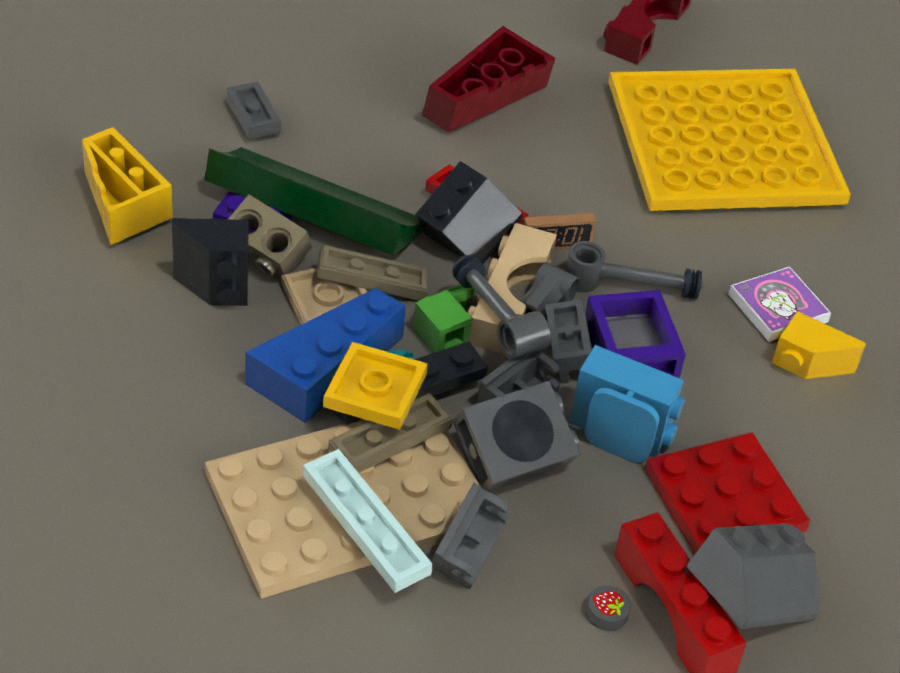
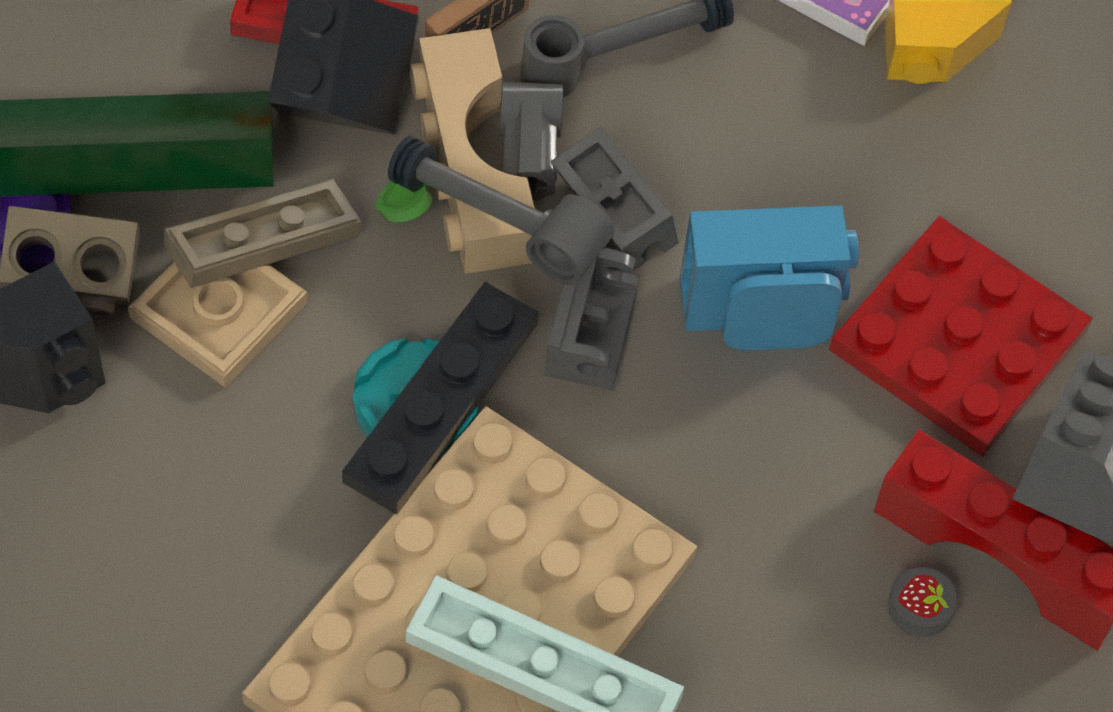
camera: 30 degrees left, 15 degrees up
(302, 362) = (288, 427): blue wedge -> none
(375, 385) = (421, 442): yellow plate -> none
(376, 442) = (478, 499): dark tan tile -> none
(441, 321) = (417, 265): bright green brick -> none
(471, 536) = (687, 604): dark grey hinge -> none
(516, 436) = (653, 409): dark grey brick -> none
(636, 328) = (696, 139): dark purple window -> none

